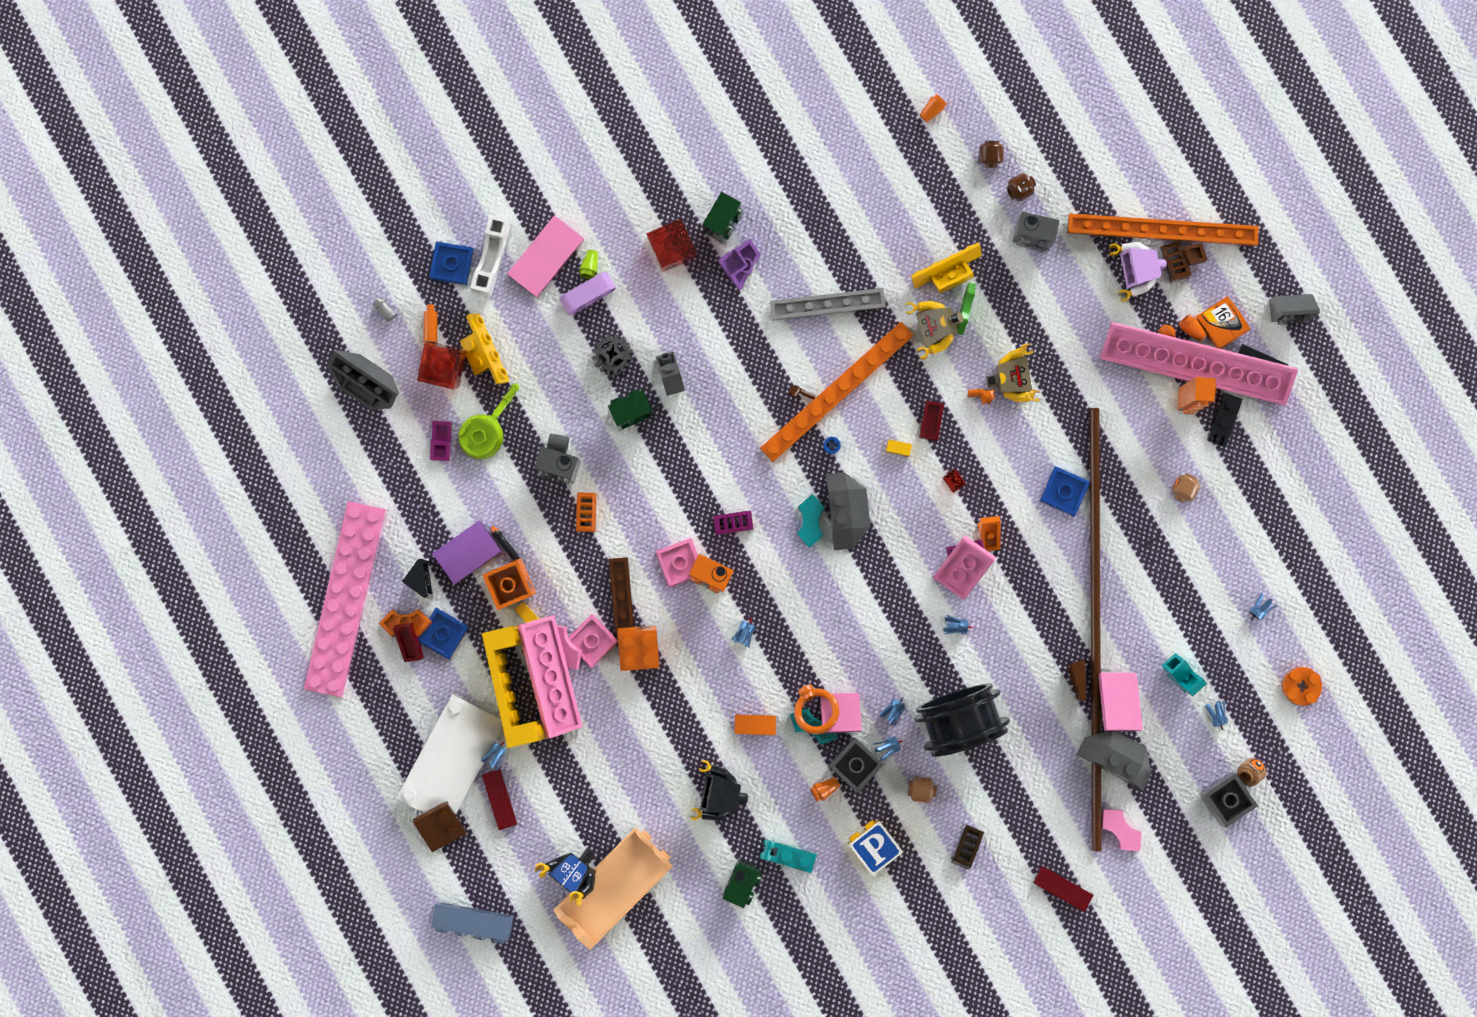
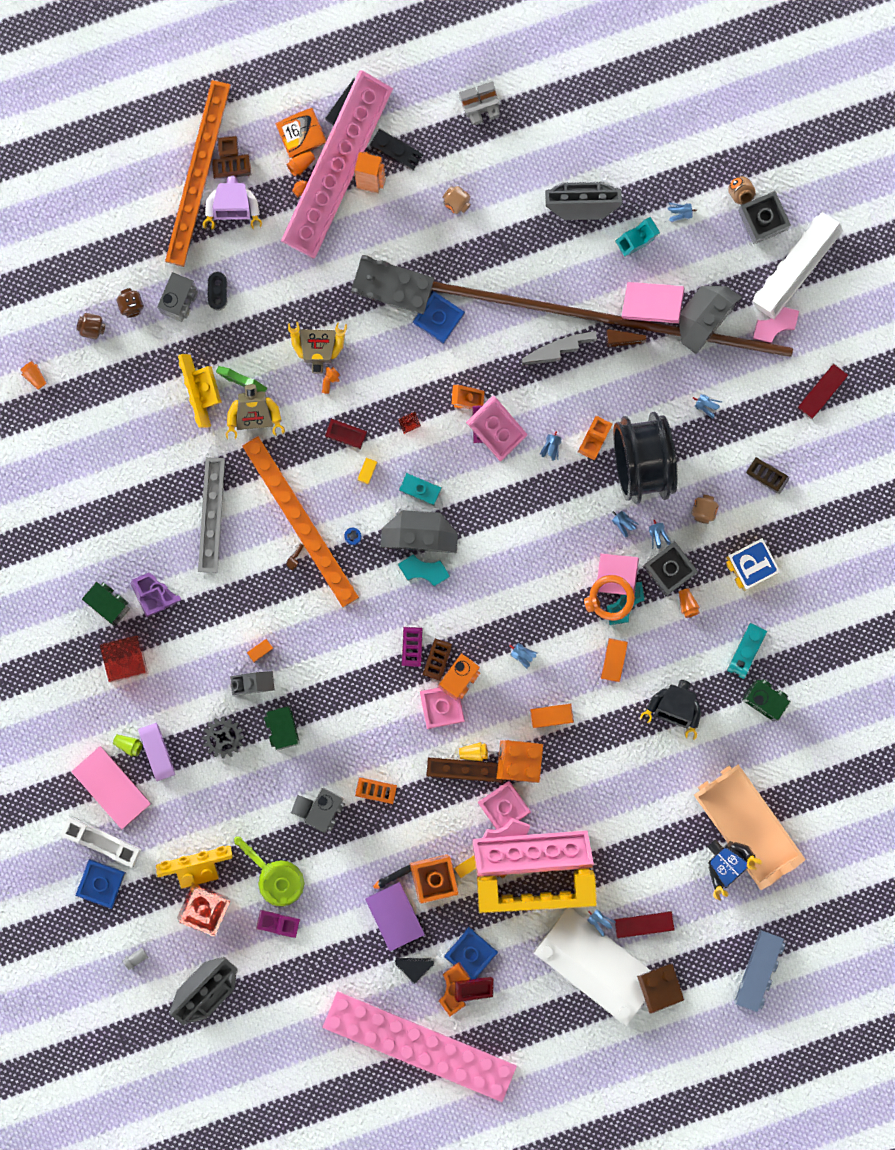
camera: 80 degrees left, 0 degrees up
(430, 325) = (159, 915): orange cylinder -> none
(640, 601) = (474, 752): none -> yellow cone
(689, 672) = (552, 715): none -> orange slope
(703, 375) = (260, 650): none -> orange piece
(741, 545) = (448, 646): none -> reddish brown slope
(890, 503) = (420, 489): none -> teal plate
(973, 667) = (595, 438): none -> orange slope
(1030, 770) = (705, 401): none -> flat silver piece
(1048, 270) = (217, 291): none -> black plate
(1051, 608) = (552, 351): none -> light grey slope
(1088, 439) = (392, 284): none -> dark grey hinge
(1186, 841) = (797, 265): none -> white brick
(1210, 613) = (583, 200): none -> dark grey wedge
(1261, 612) = (590, 152): flat silver piece -> none
(1291, 502) = (488, 101): none -> light grey hips
(1293, 308) = (299, 61): dark grey slope -> none
(1311, 680) = (665, 115): orange plate -> none

